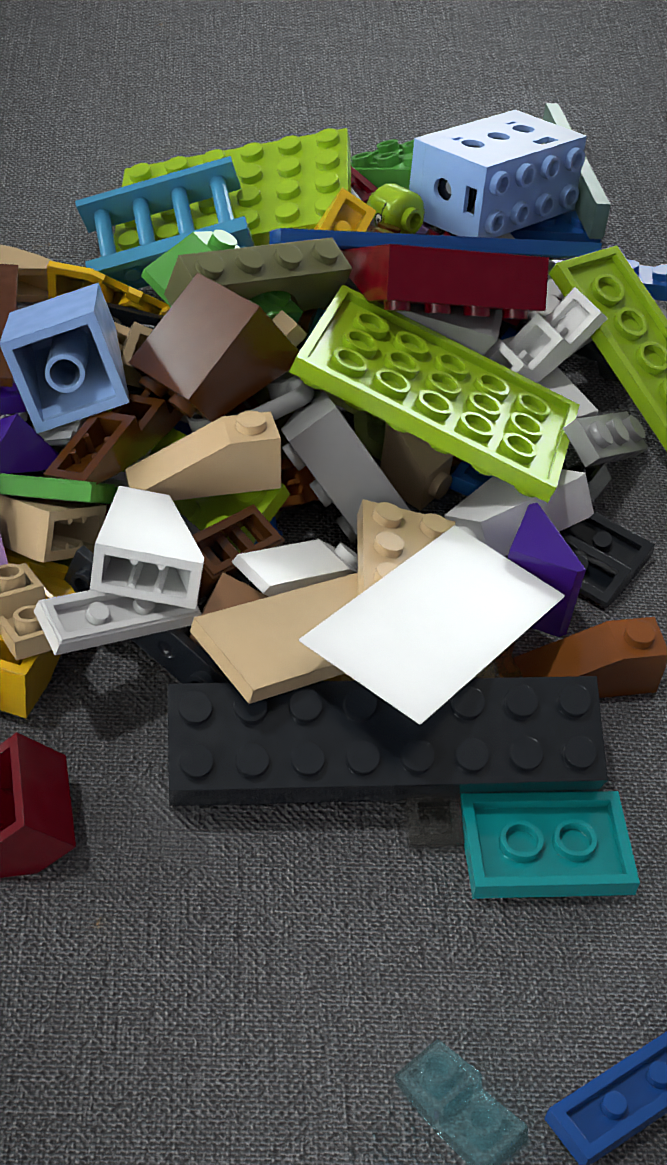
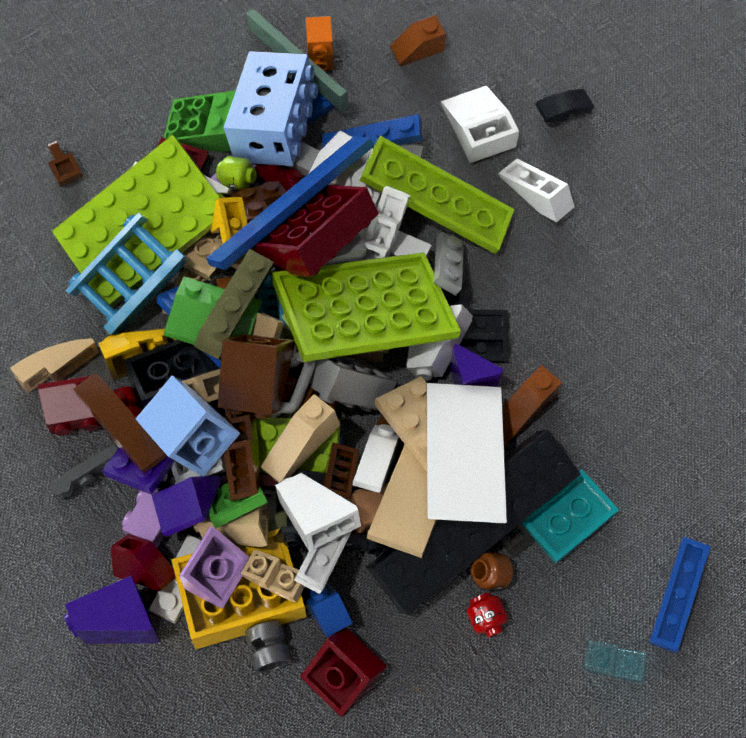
camera: 30 degrees left, 20 degrees up
(59, 709) = (327, 609): none -> blue slope
(198, 128) = (63, 166): none -> reddish brown plate
(297, 884) = (487, 614): none -> red head
(356, 830) = (492, 571): none -> dark orange head
(618, 161) = (320, 41): none -> orange brick

